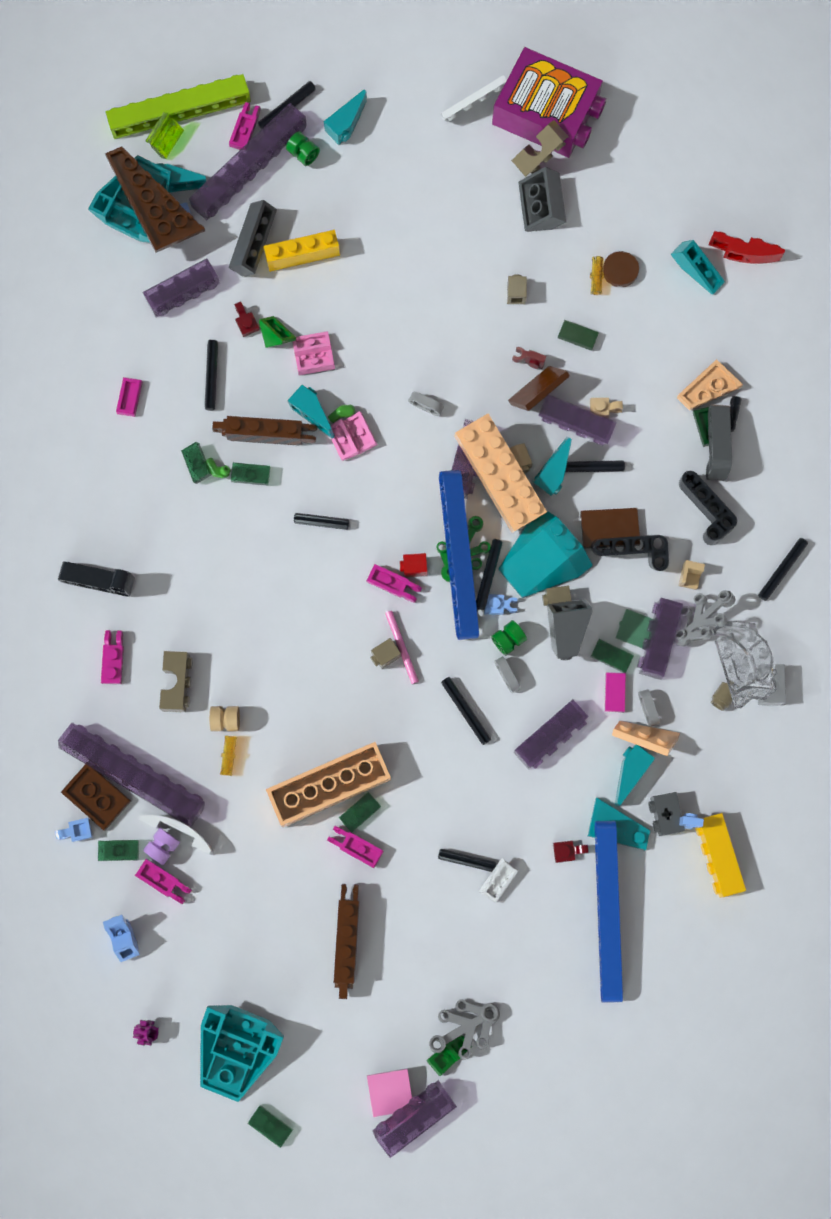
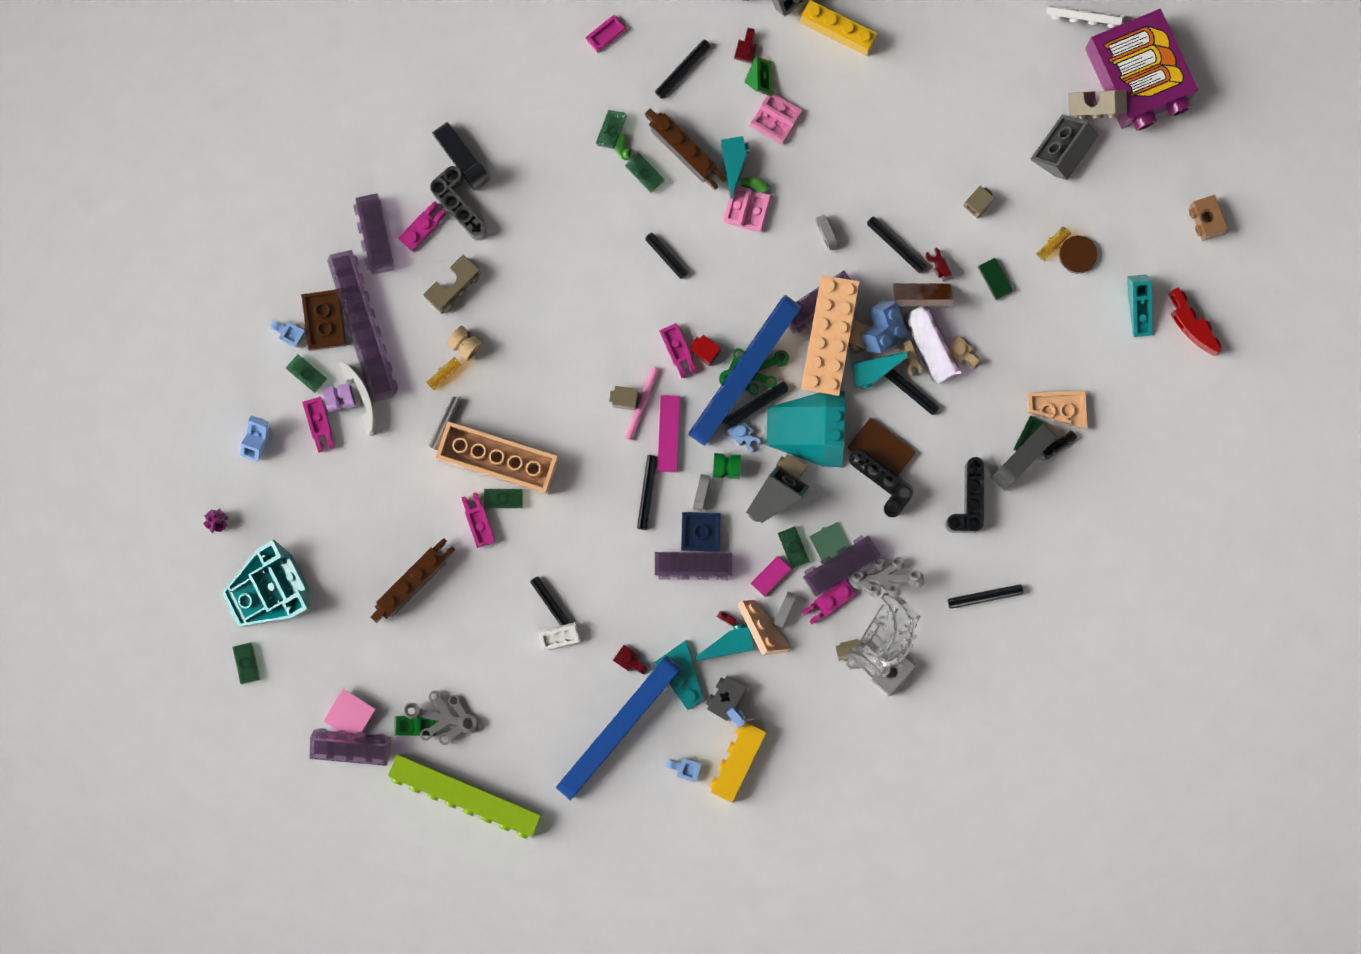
camera: 45 degrees right, 5 degrees up
(78, 694) = (374, 233): none -> clear purple brick
(130, 616) = (460, 207): none -> dark grey beam
(260, 785) = (448, 415): none -> light grey axle
(442, 652) = (668, 433): none -> dark pink tile
(485, 370) = (896, 244): none -> black axle
(533, 705) = (700, 532): none -> dark blue plate
(535, 433) = (887, 327): none -> medium blue brick
(538, 1074) = (465, 796): none -> lime brick
(575, 443) = (912, 358): none -> tan plate
(615, 752) = (726, 618): none -> dark red tile
(675, 672) = (831, 600): none -> dark pink hinge
(686, 159) = (1210, 207): none -> medium nougat brick
(687, 896) = (686, 769): none -> light blue plate
(691, 574) = (909, 539): tan panel -> none

